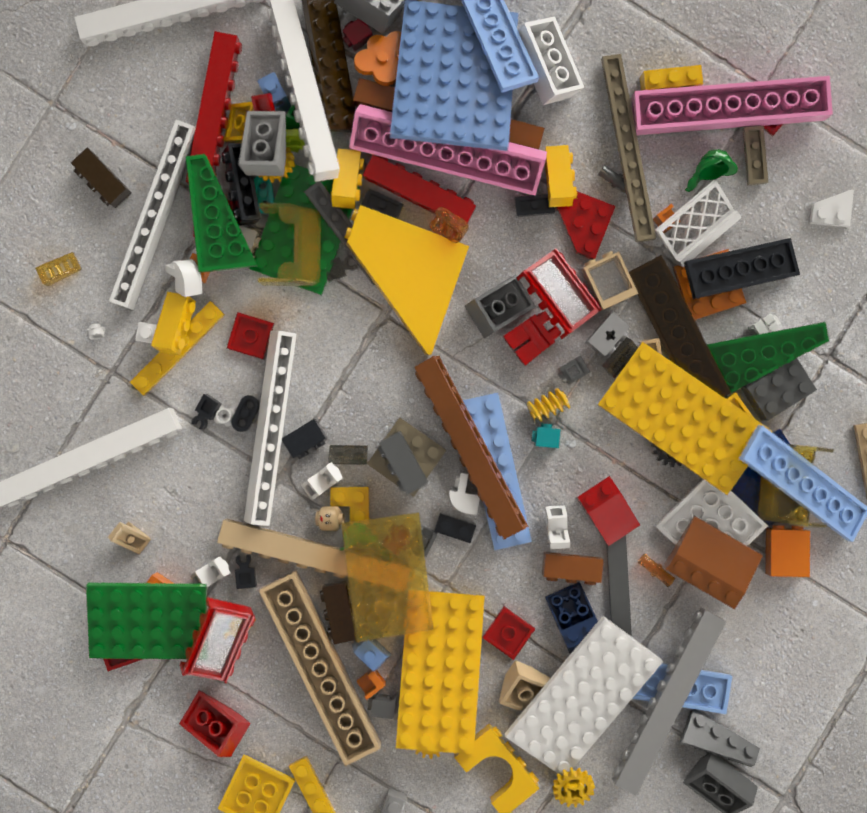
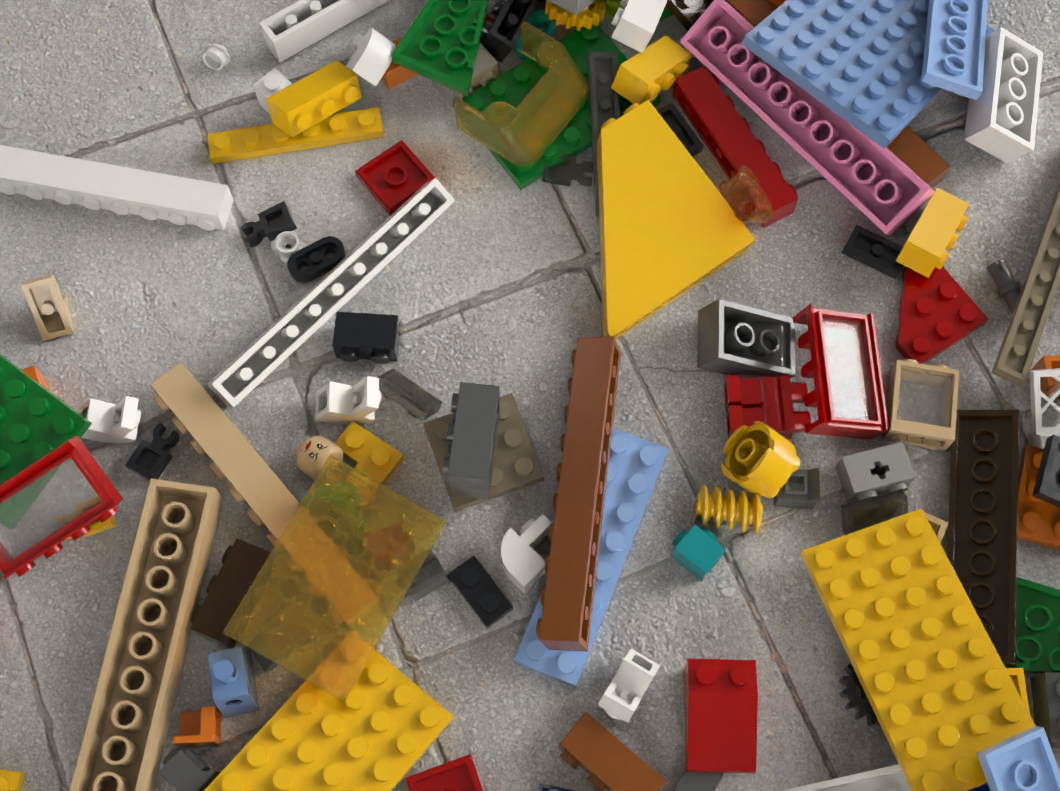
camera: 30 degrees right, 20 degrees down
(548, 372) = (759, 459): none -> yellow brick

